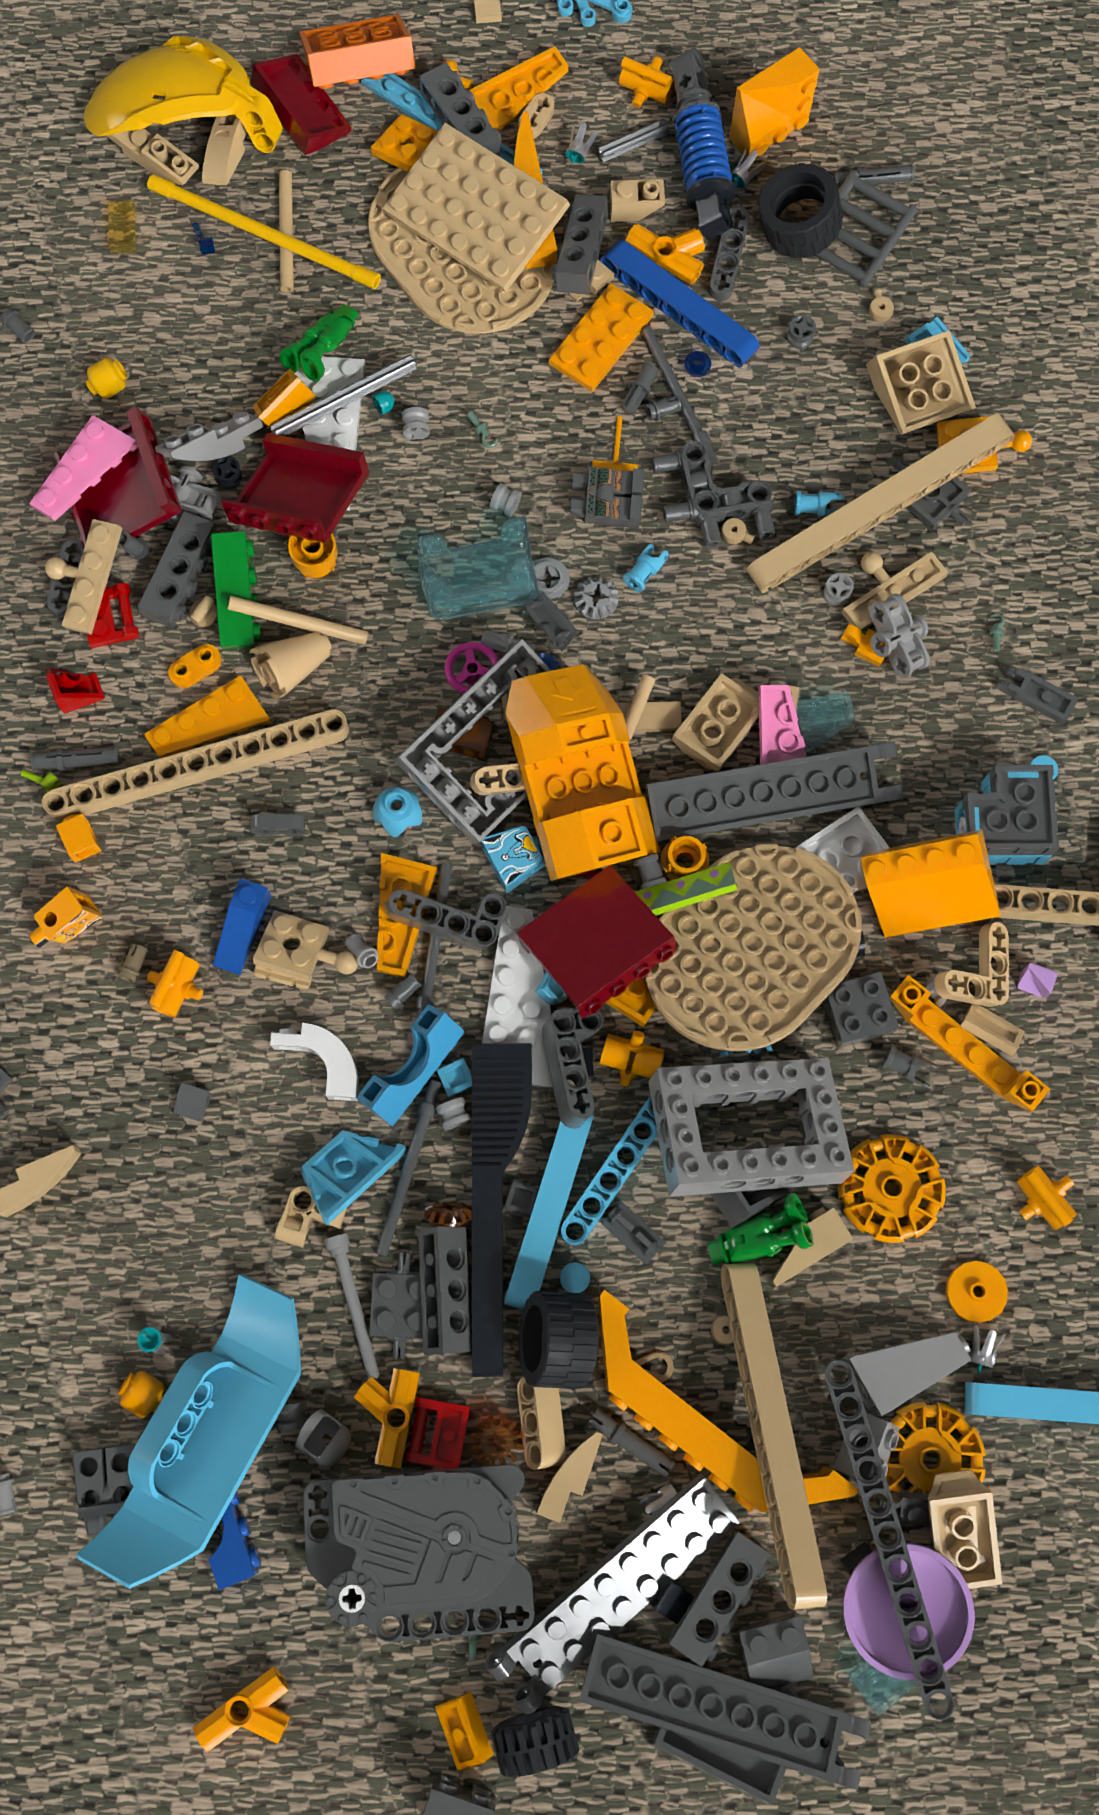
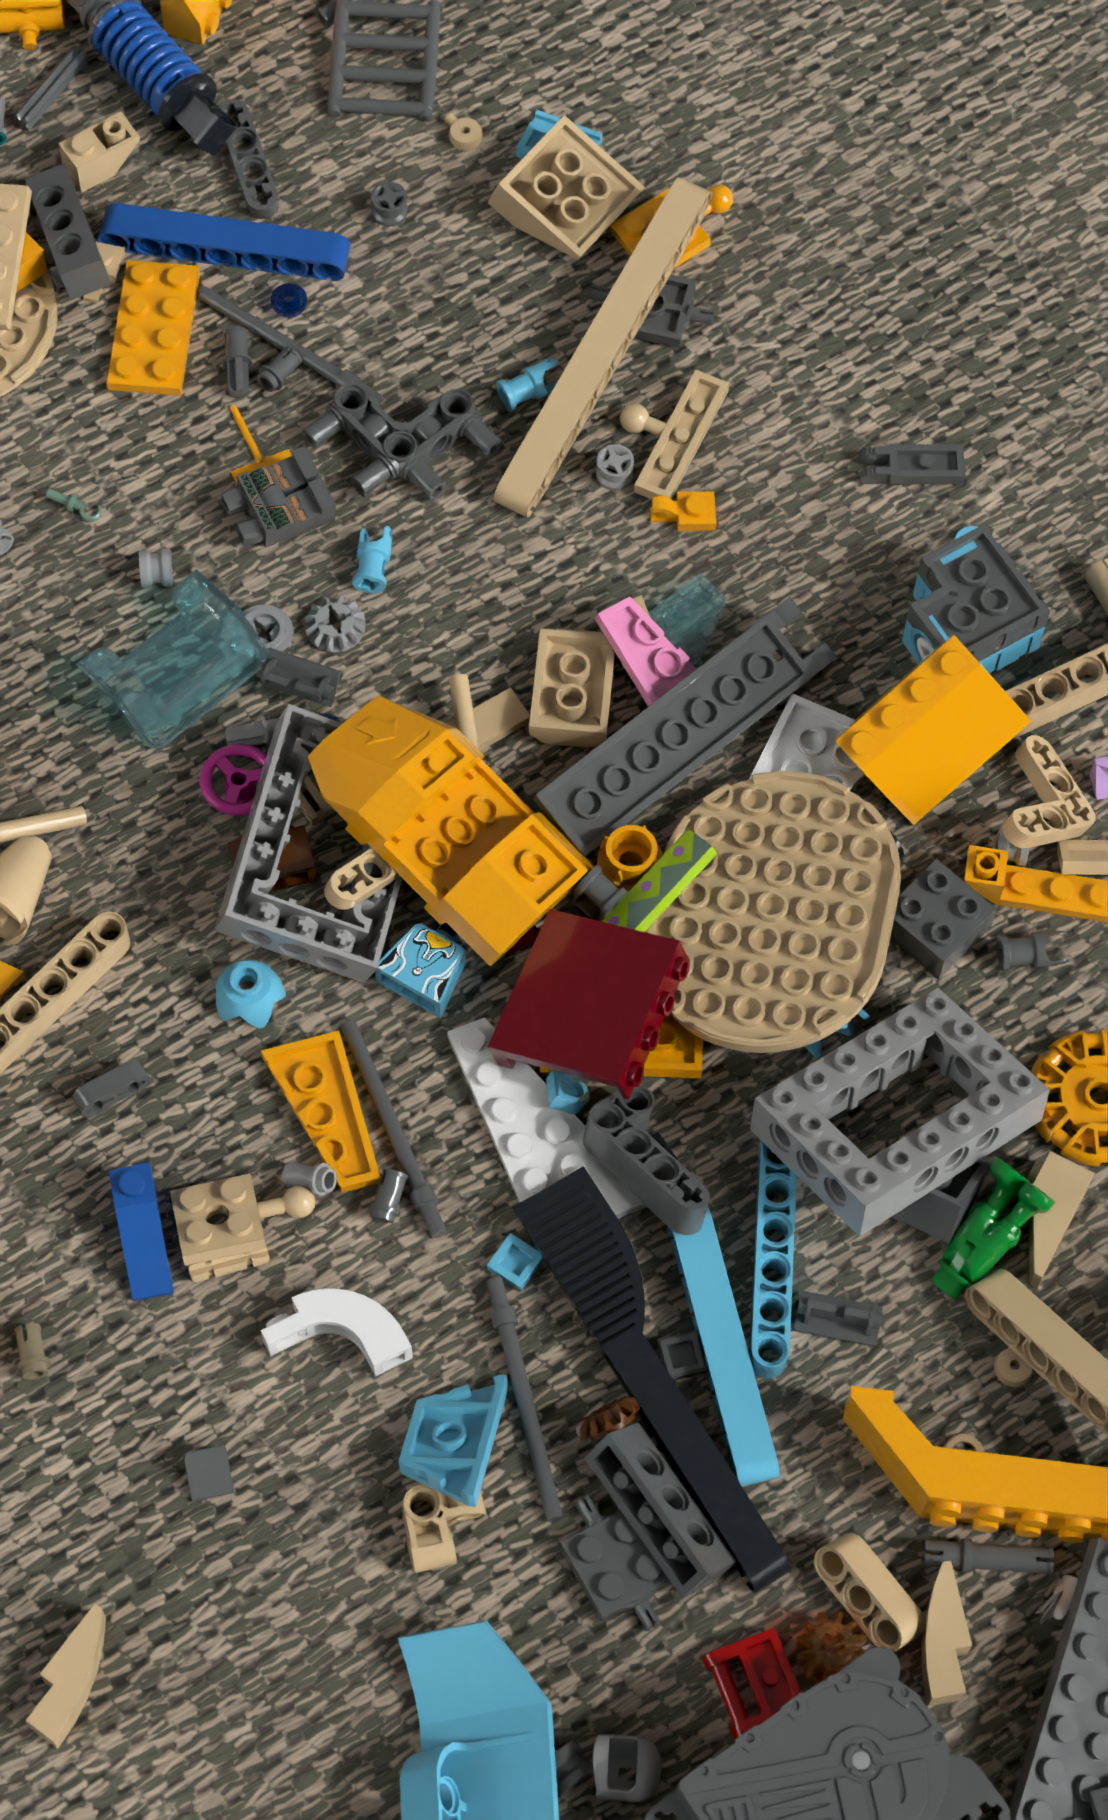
camera: 30 degrees left, 10 degrees down
(151, 1339) = (339, 1778): teal piece -> none
(174, 984) = (101, 1345): light orange pin -> none
(338, 1248) = (499, 1539): light grey piece -> none
(381, 1404) = (666, 1690): light orange piece -> none
(433, 1039) = (462, 1228): dark azure arch -> none
(442, 913) = (336, 1089): dark grey beam -> none
(453, 1114) = (540, 1303): light grey wheel -> none
(558, 1340) = (833, 1477): black tyre -> none
(575, 1278) = (802, 1410): medium azure tile -> none
(631, 1057) = (710, 1117): light orange pin -> none
(678, 251) = (180, 190): light orange piece -> none
(738, 536) = (460, 464): tan piece -> none
(740, 174) = (204, 55): flat silver piece -> none
(795, 184) = (287, 38): black tyre -> none
(898, 634) = (733, 489): light grey axle -> none
(997, 632) = (824, 421): sand green hand -> none

